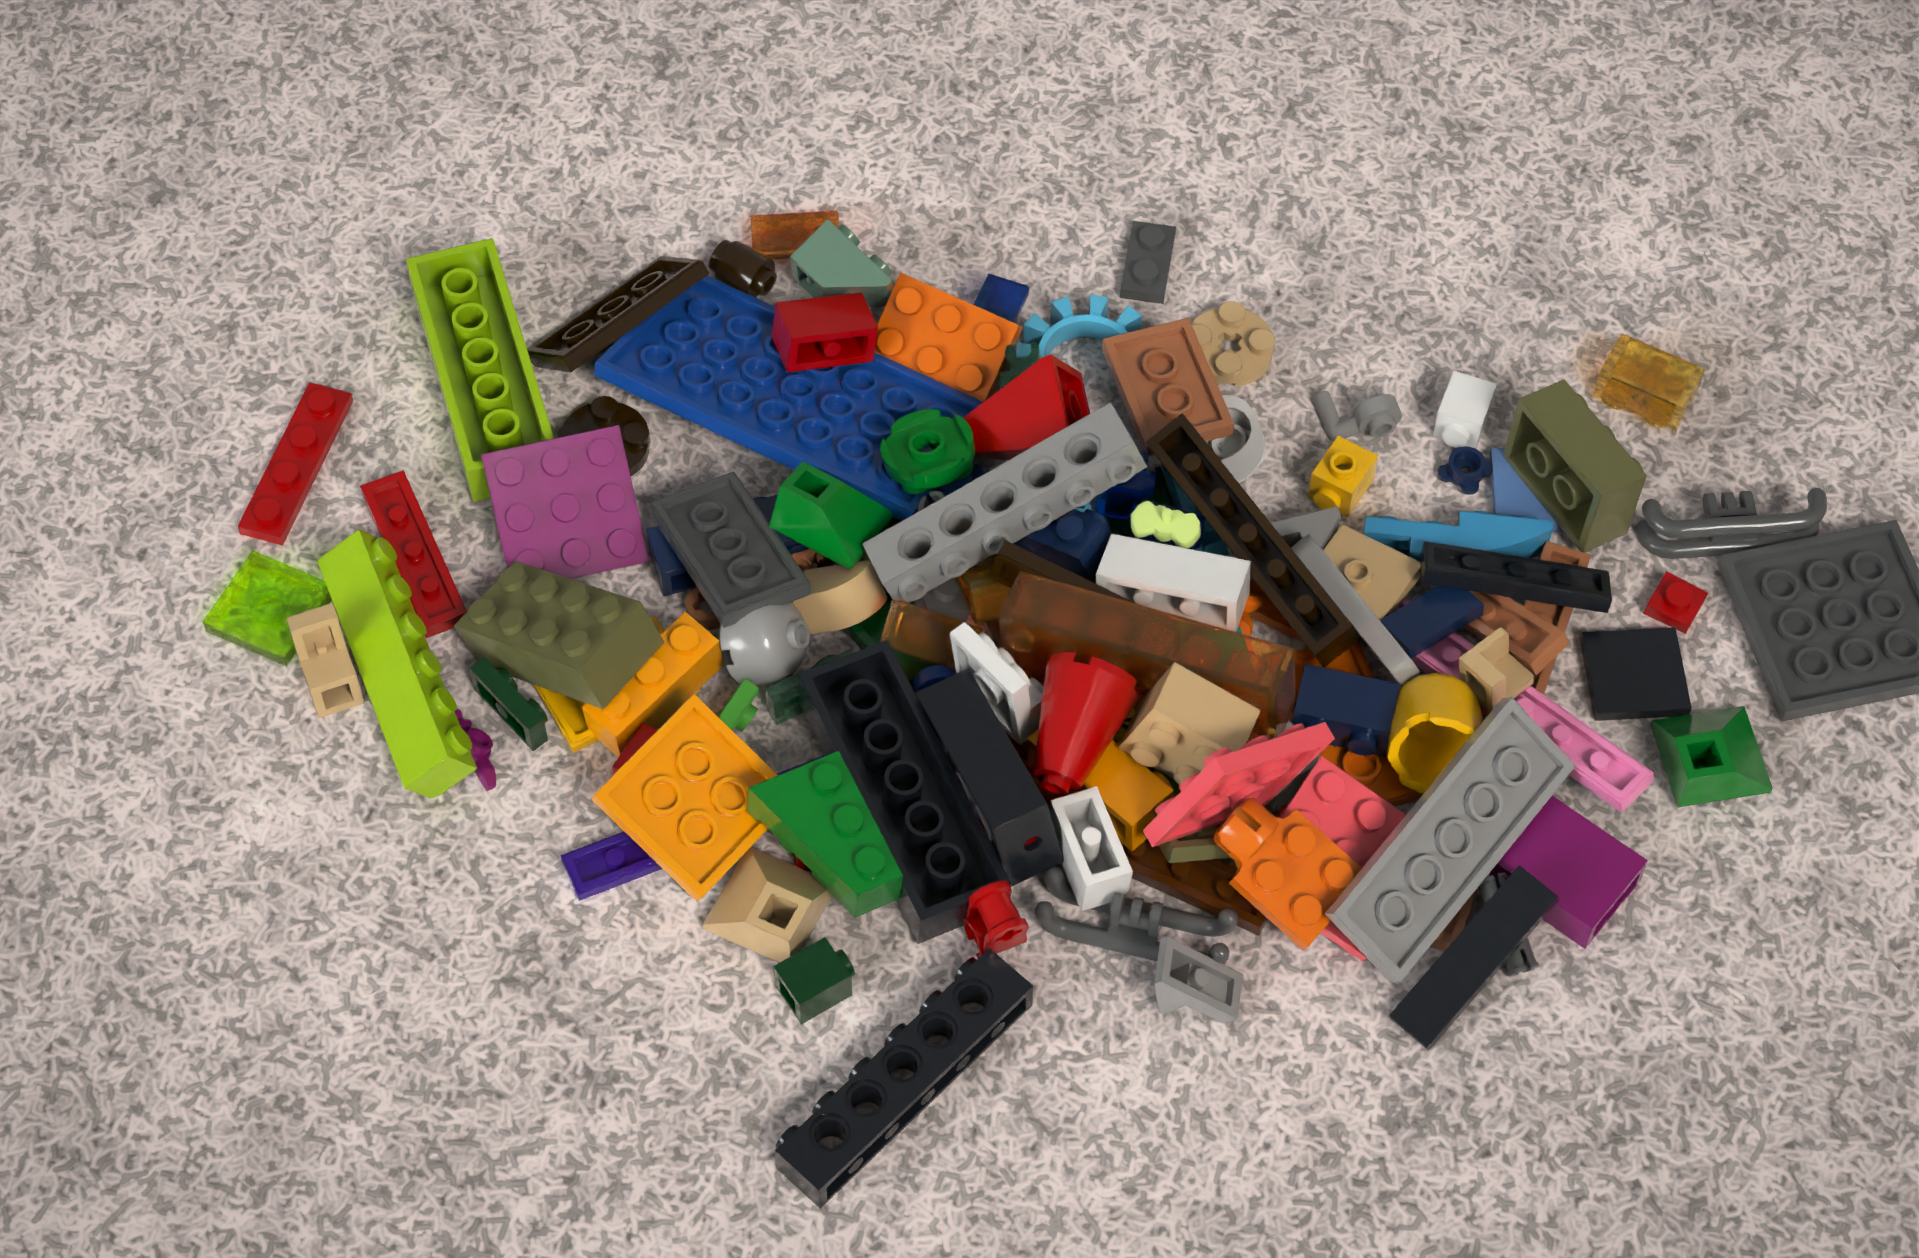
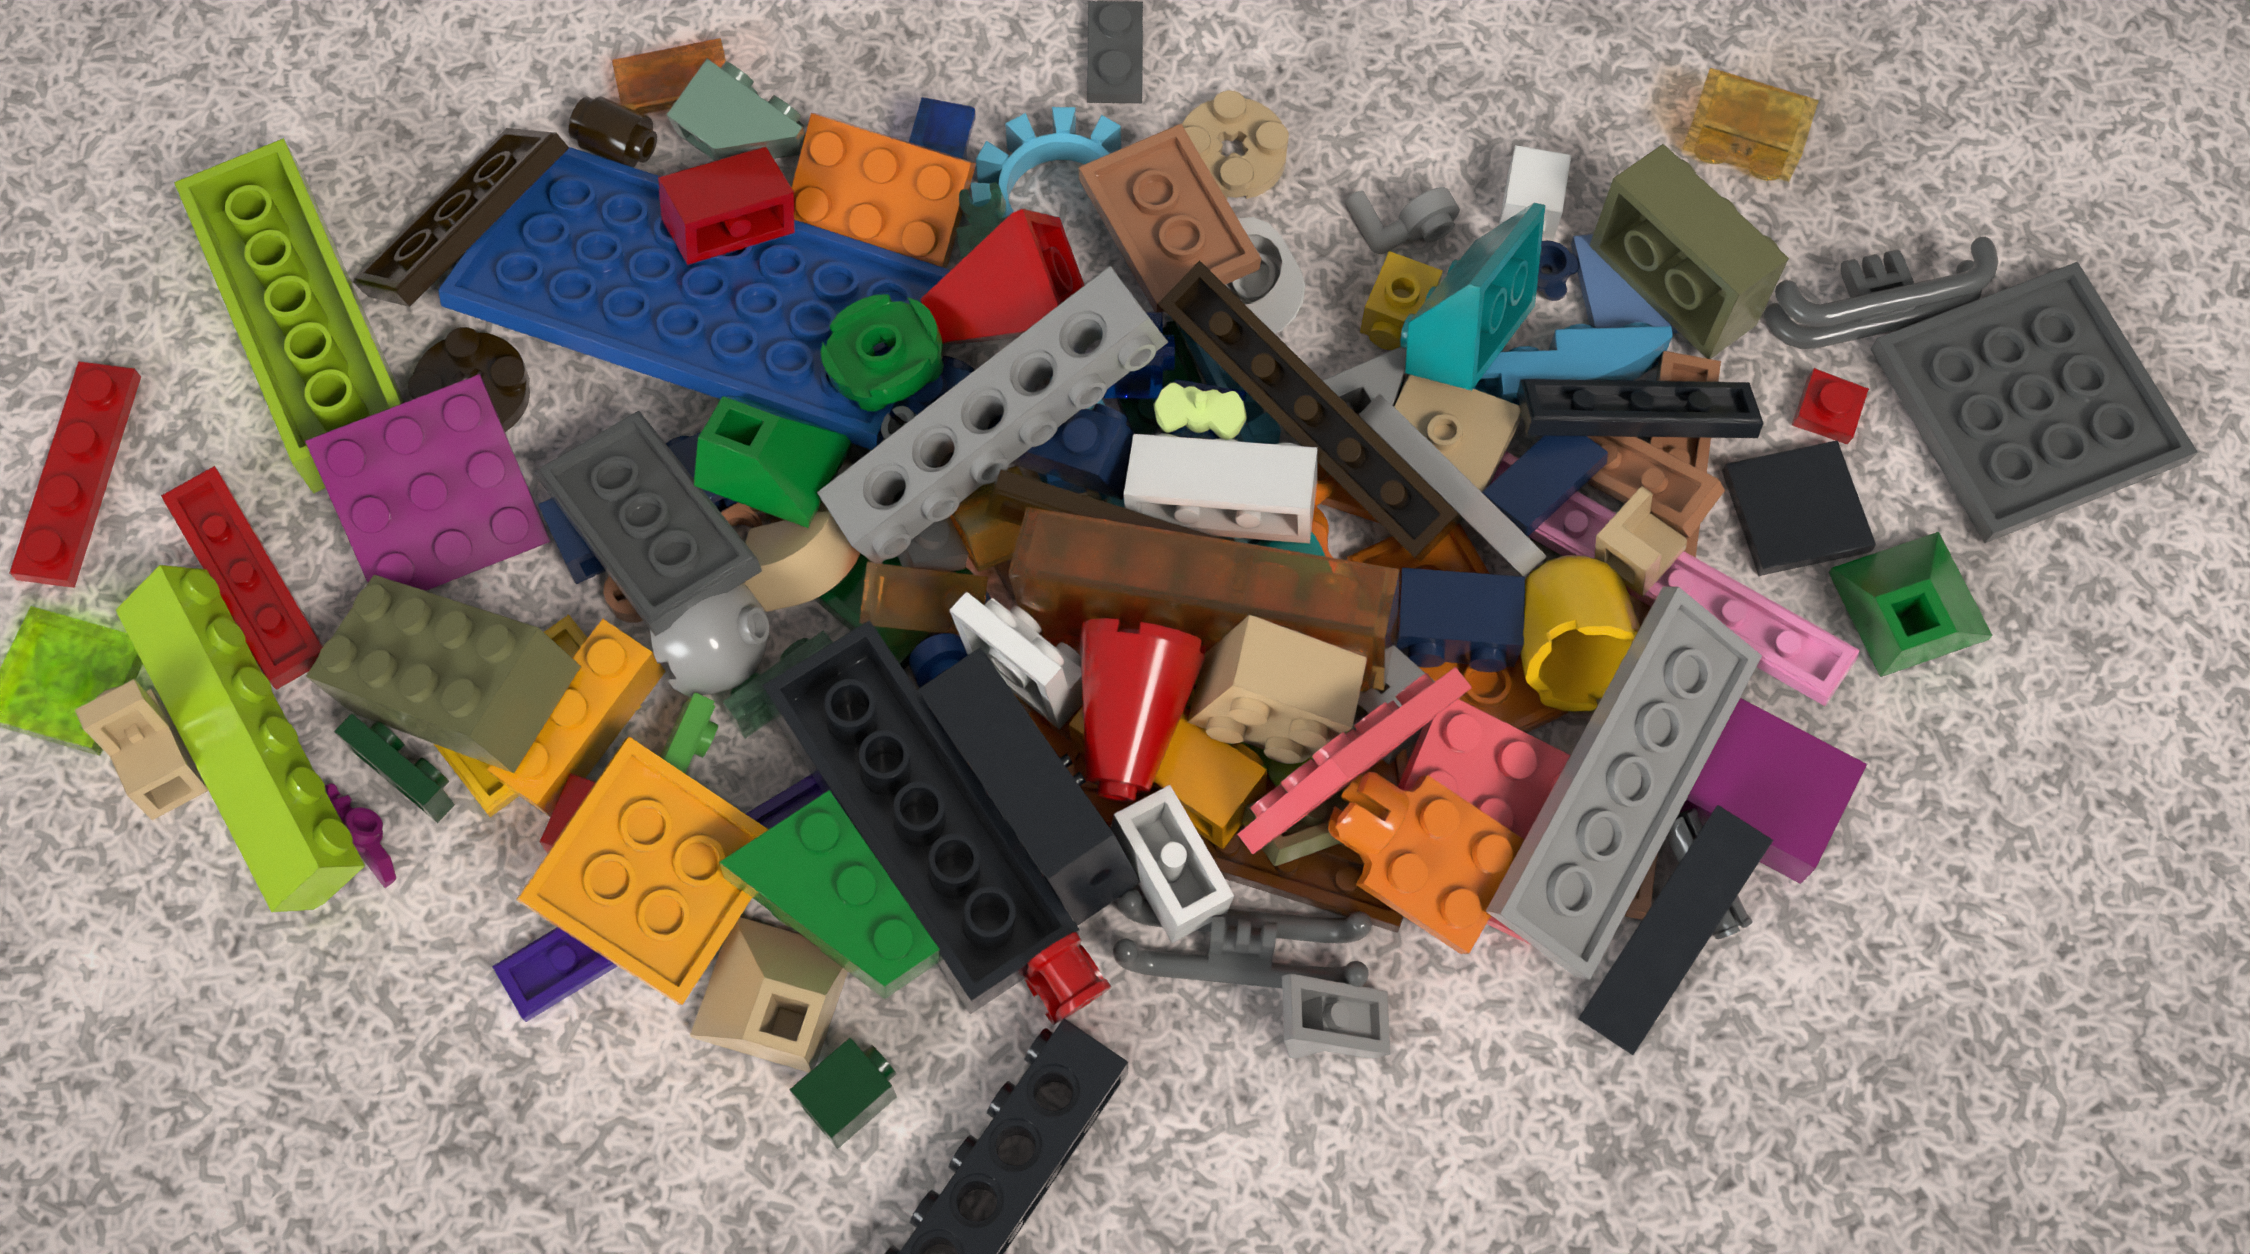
camera: 10 degrees left, 10 degrees up
(1400, 482) = (1477, 304): none -> teal slope

